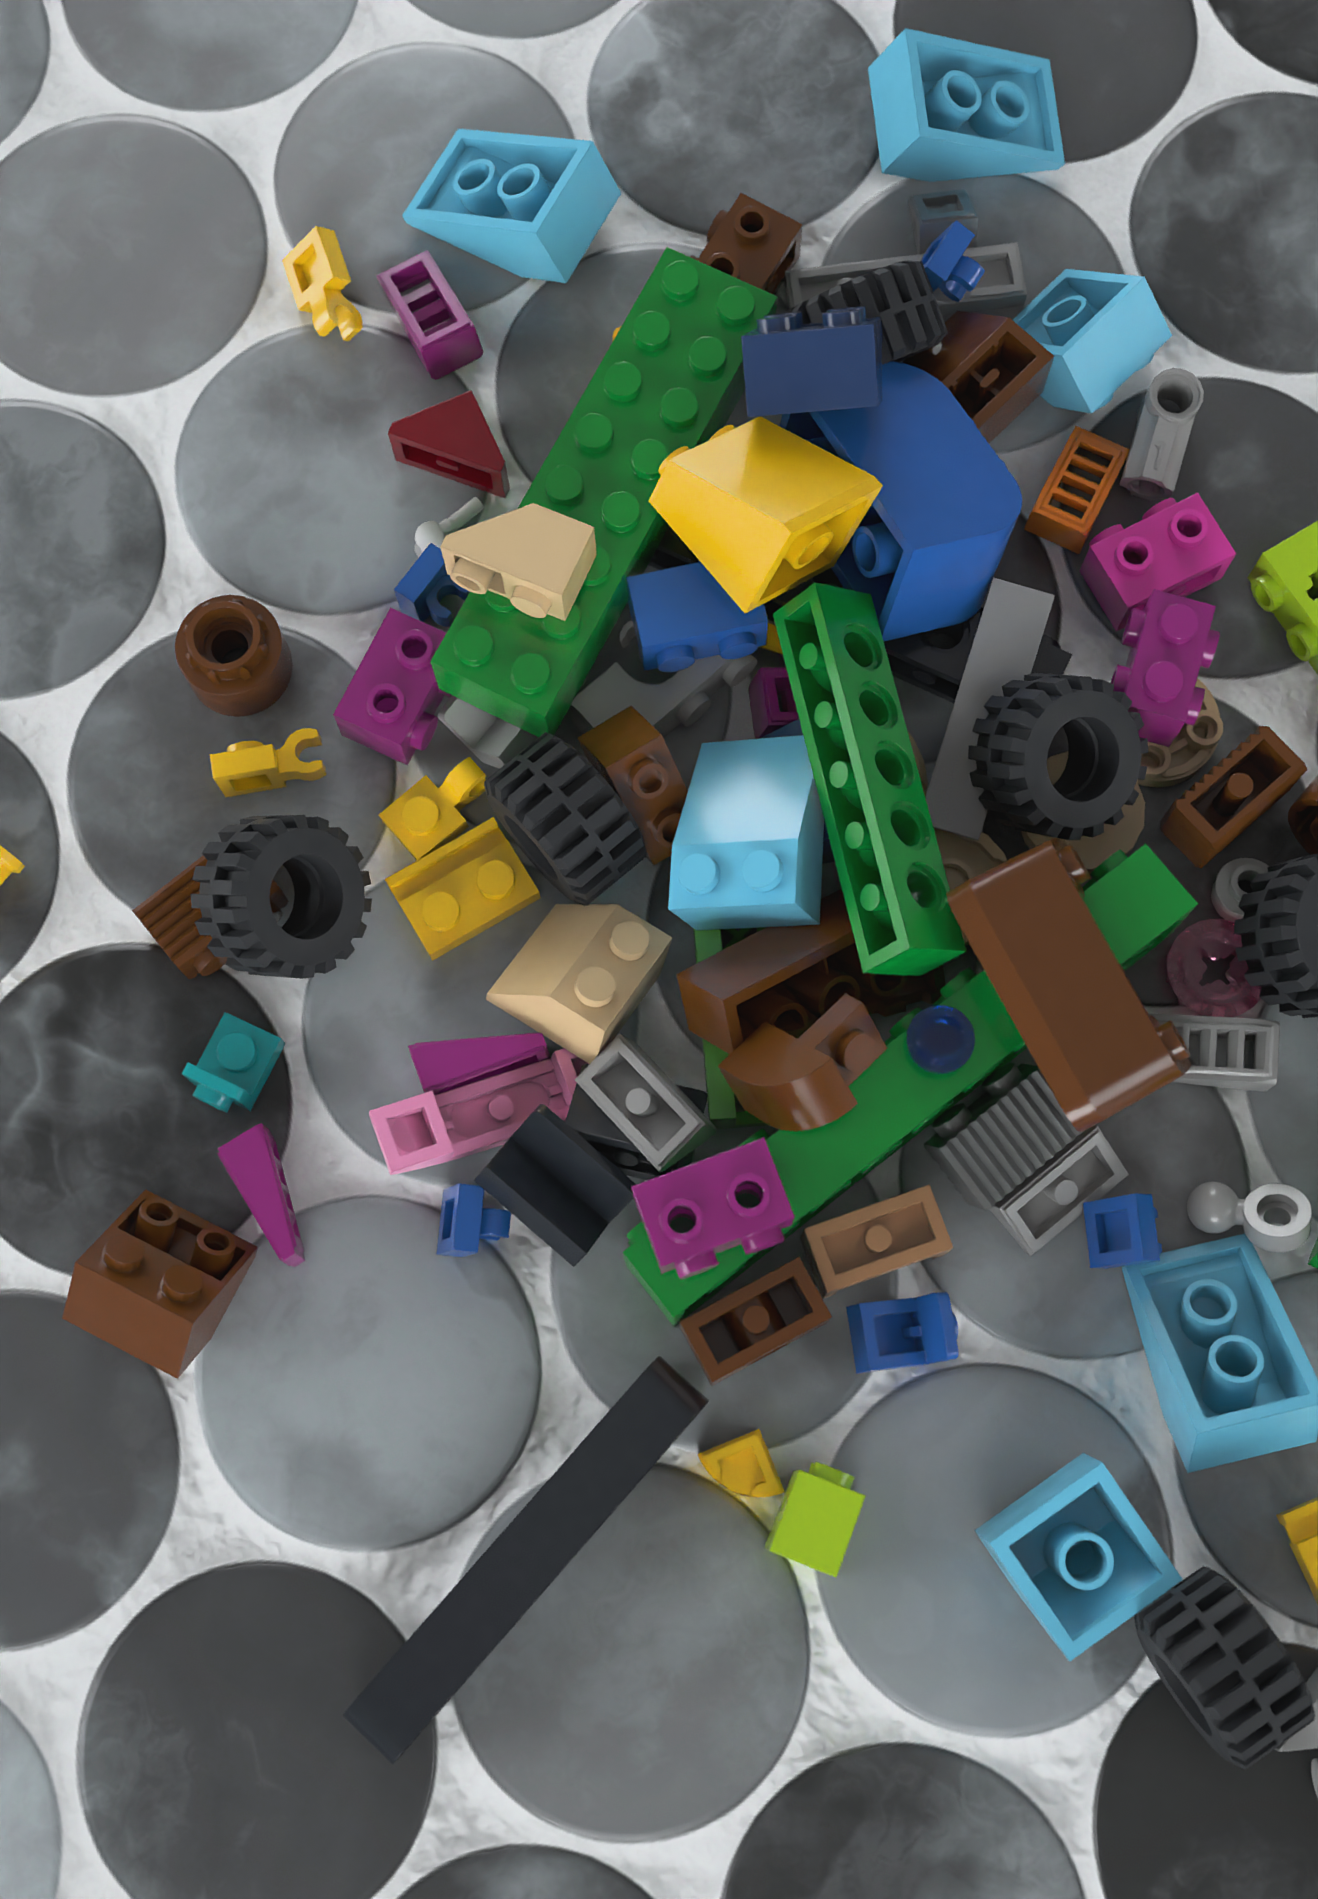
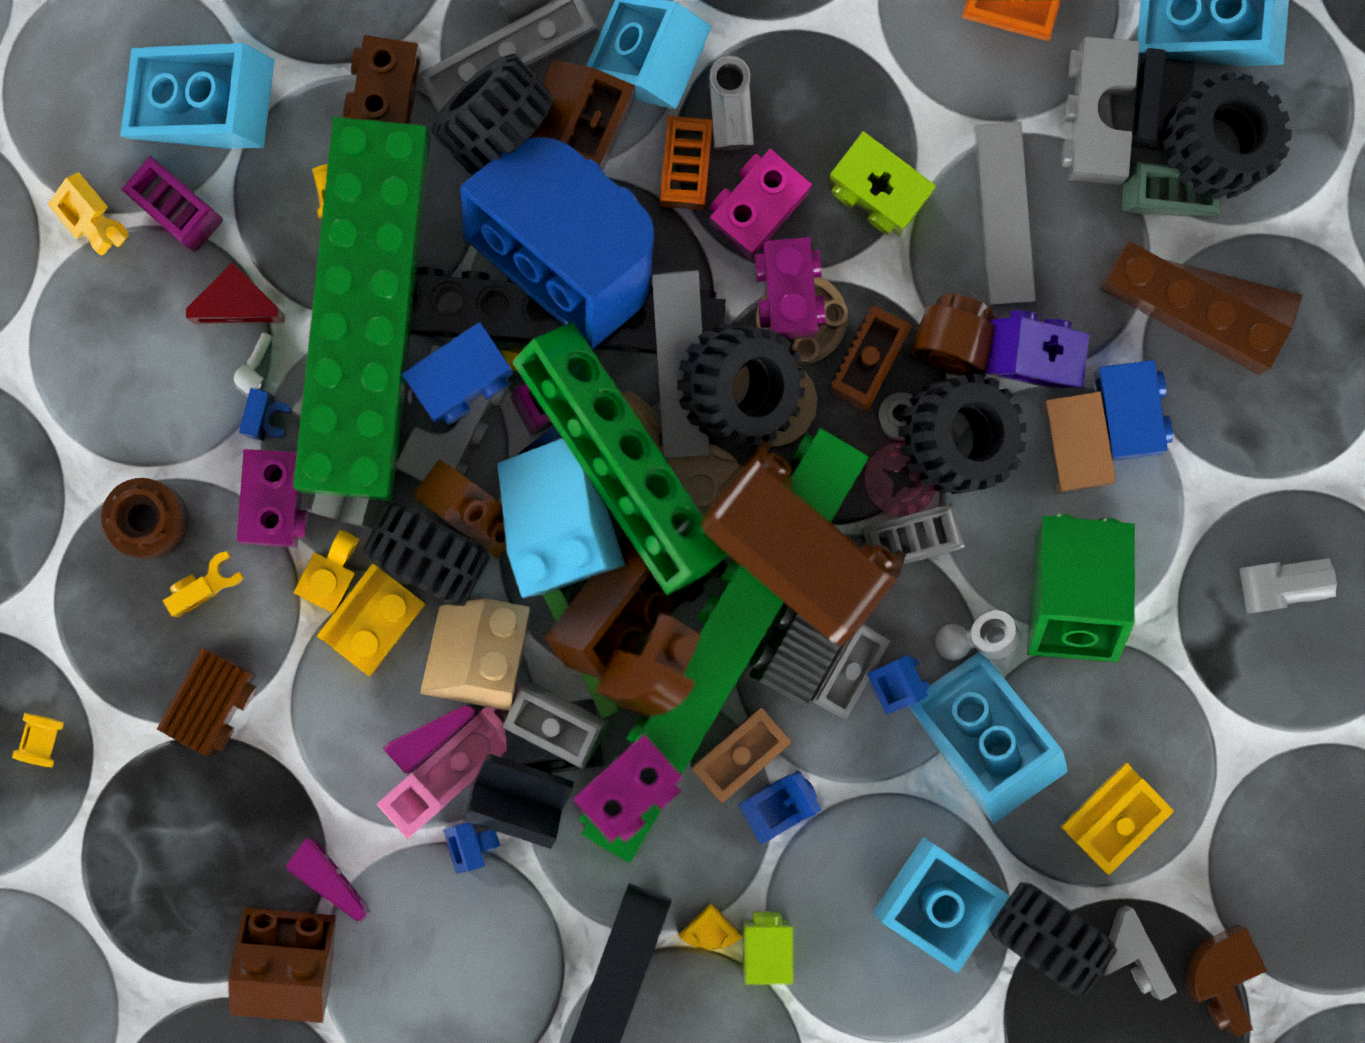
camera: 30 degrees left, 10 degrees up
(234, 1064) = (268, 802): teal bracket -> none
(237, 896) = (227, 688): black tyre -> none
(524, 556) = (331, 396): tan slope -> none
(755, 1321) = (682, 839): reddish brown brick -> none
(762, 507) = (474, 294): yellow slope -> none
(813, 364) = (473, 180): dark blue slope -> none
(940, 1039) = (733, 617): clear blue plate -> none
(948, 266) = (531, 36): blue tile -> none

